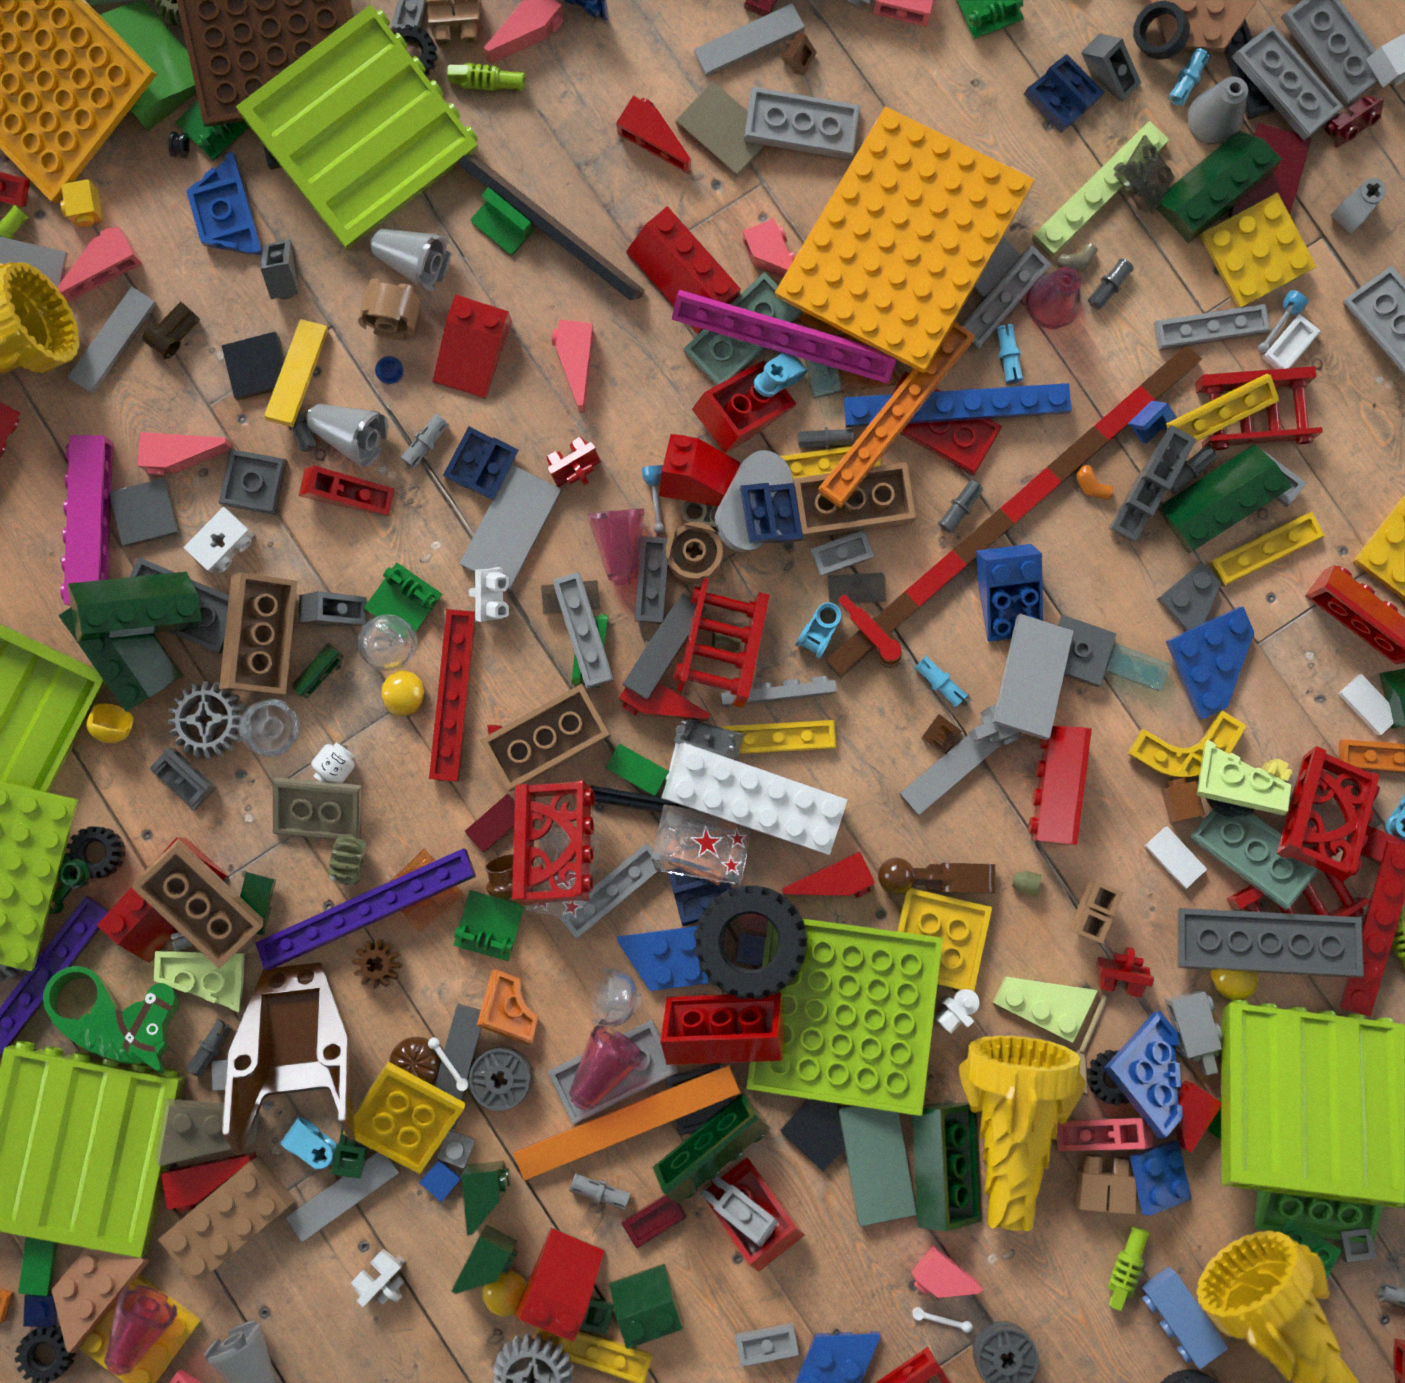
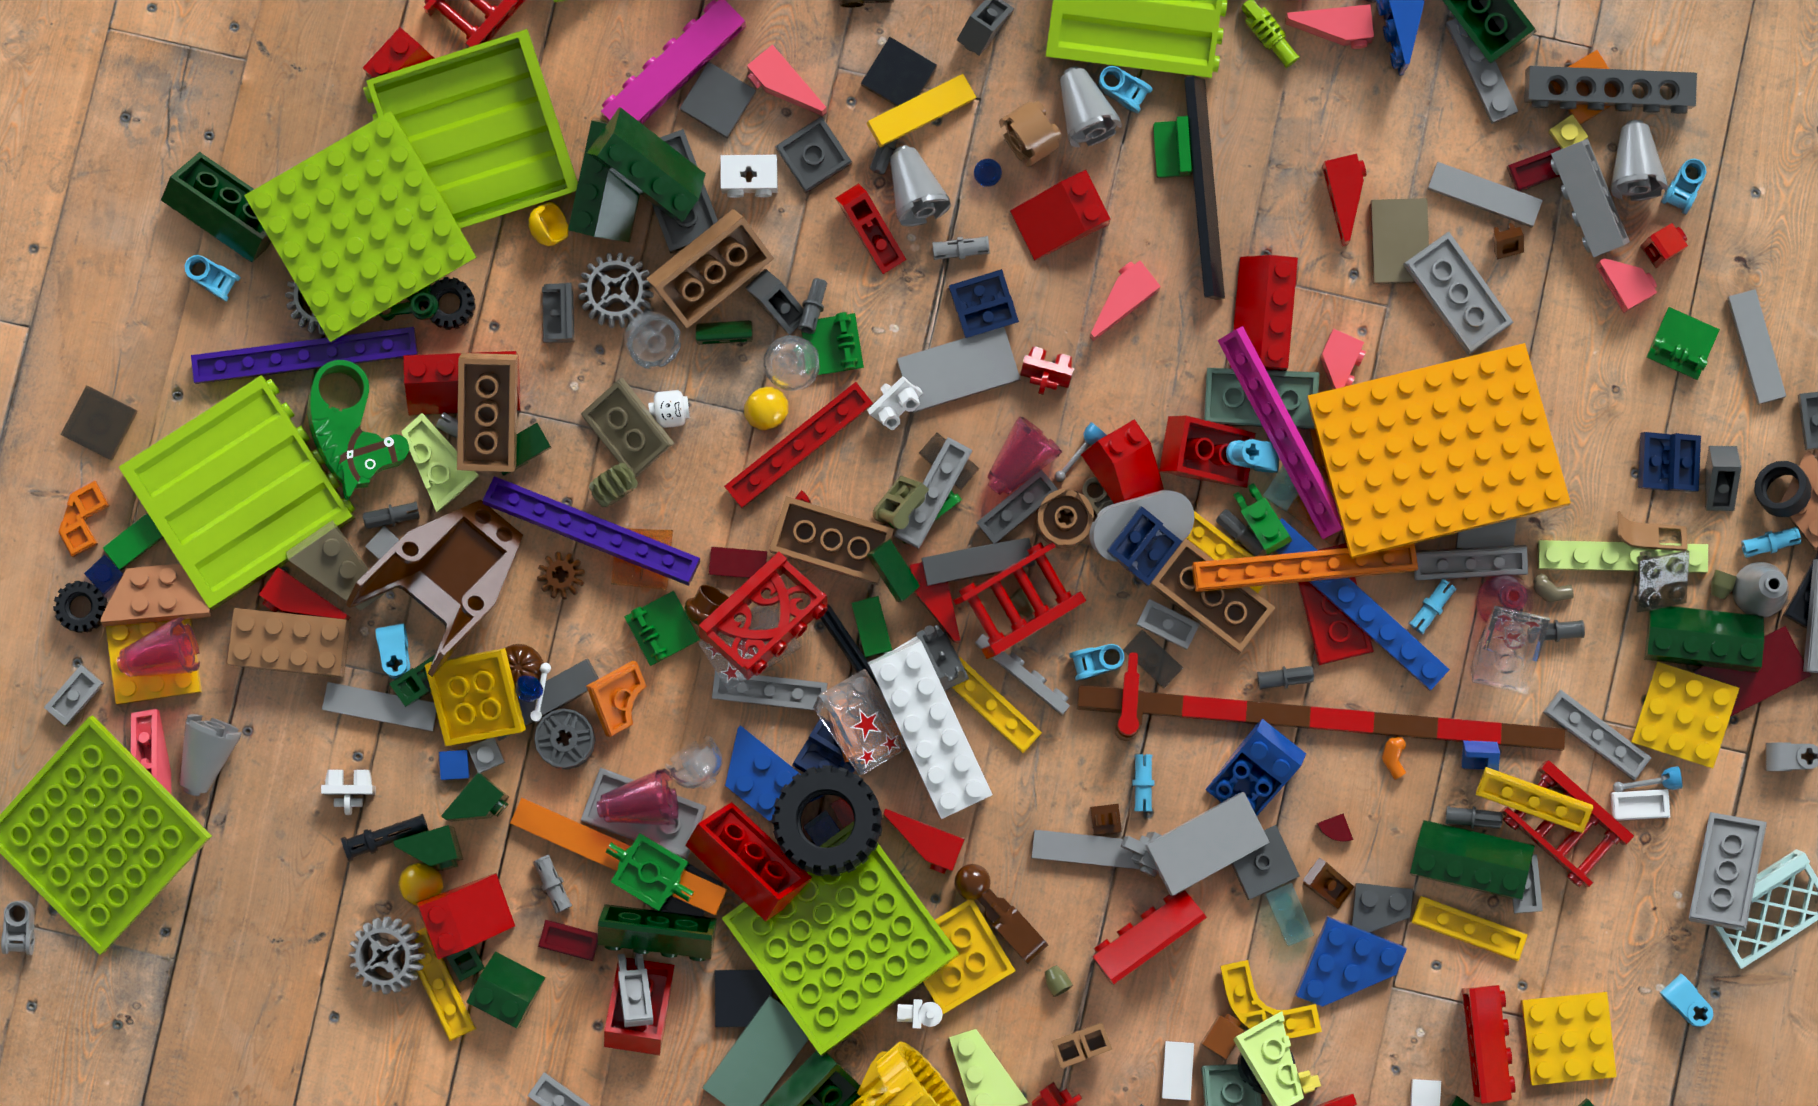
camera: 45 degrees right, 0 degrees up
(361, 587) = (812, 306): none -> dark grey axle
(425, 214) = (1125, 89): none -> medium azure piece
(436, 1072) = (528, 688): none -> clear blue plate
(436, 1299) = (369, 844): none -> black pin
(563, 652) = (905, 494): none -> olive plate
(612, 713) = (893, 570): none -> dark green slope
(661, 1112) = (649, 872): none -> green plate
(834, 412) = (1263, 521): none -> green hinge
(1097, 324) = (1509, 649): none -> clear slope
(1103, 157) = (1647, 535): none -> medium nougat piece
(1105, 574) = (1336, 828): none -> dark red tile
(1140, 618) = (1328, 883): none -> reddish brown slope
(1152, 483) = (1433, 799): dark grey slope -> none
(1187, 138) = (1722, 584): none -> olive hose

